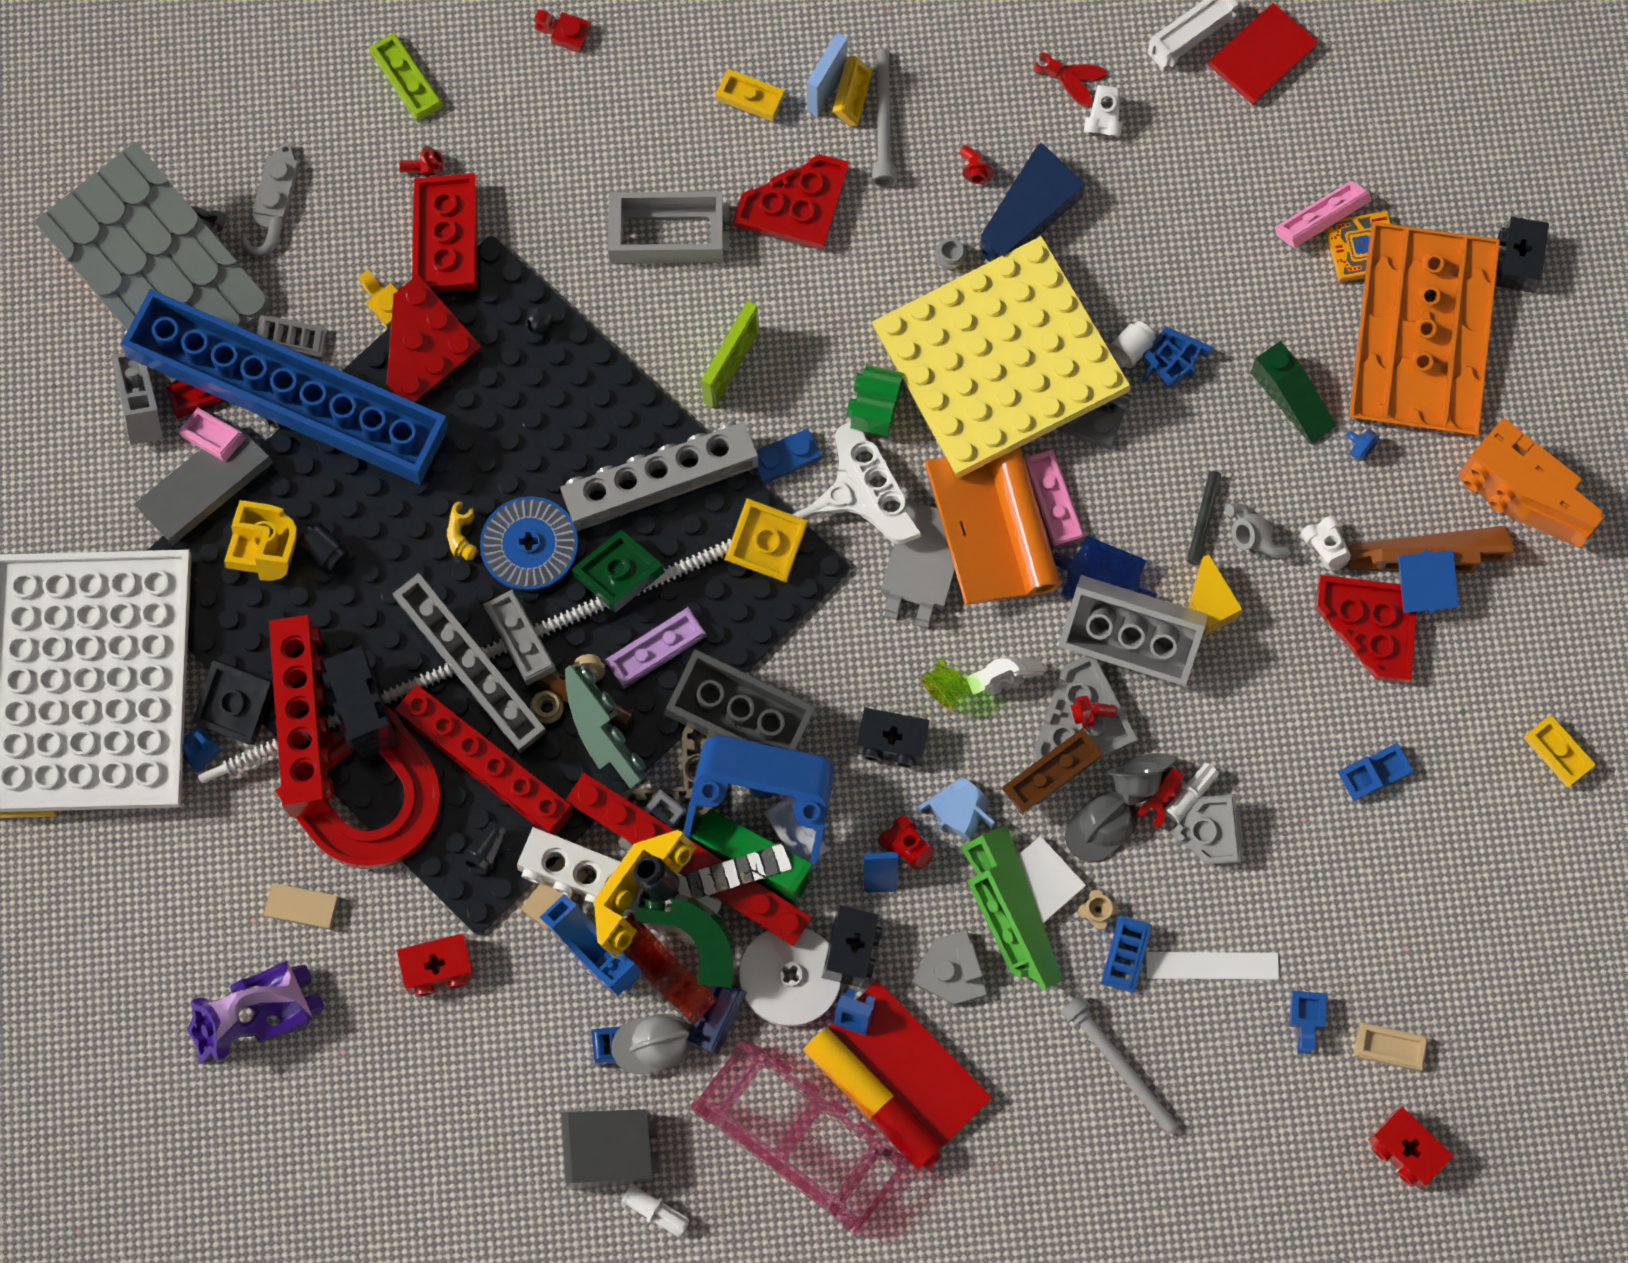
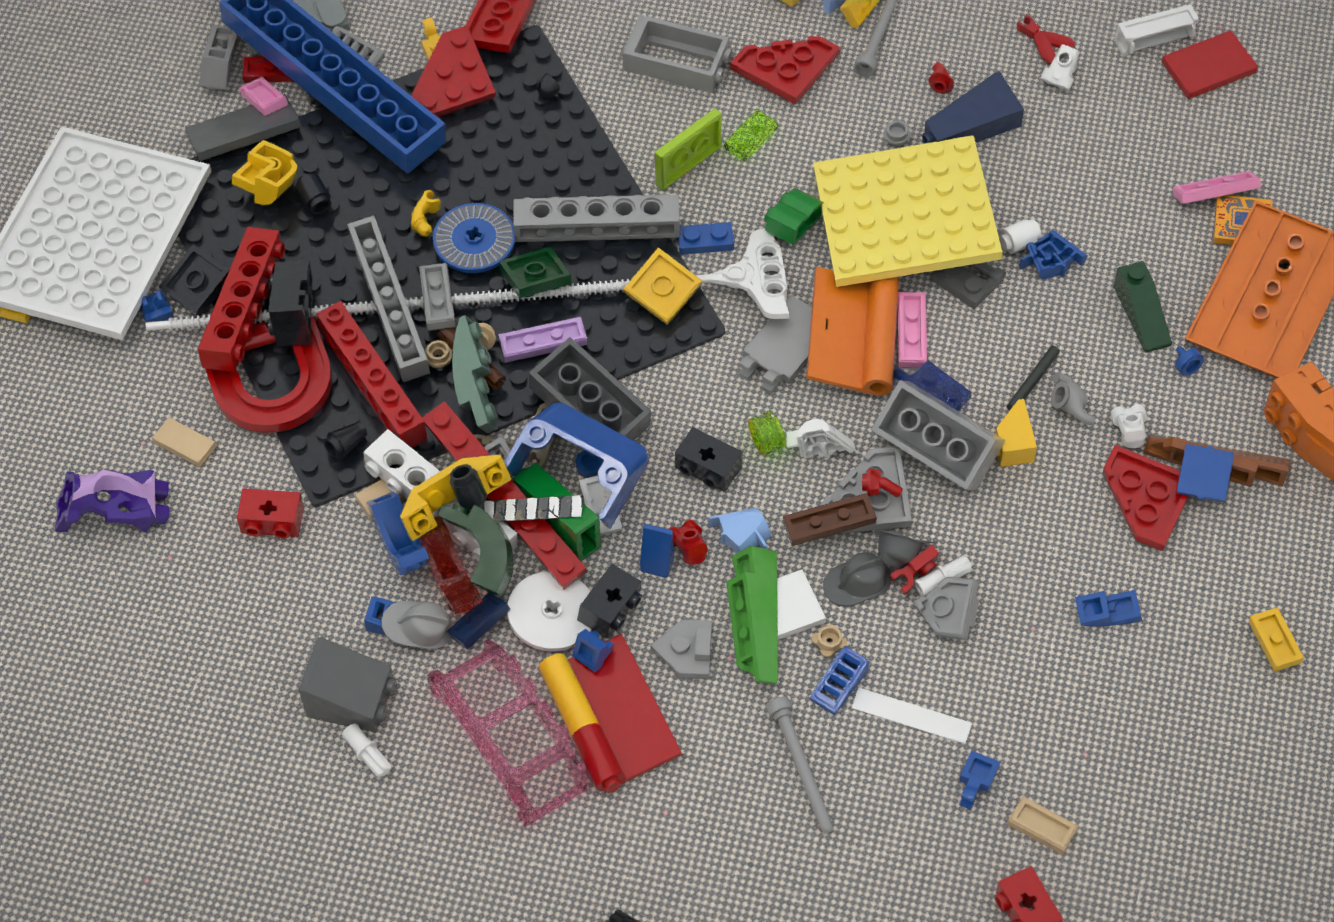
camera: 20 degrees right, 15 degrees down
(788, 306) = (751, 135): none -> clear neon green plate

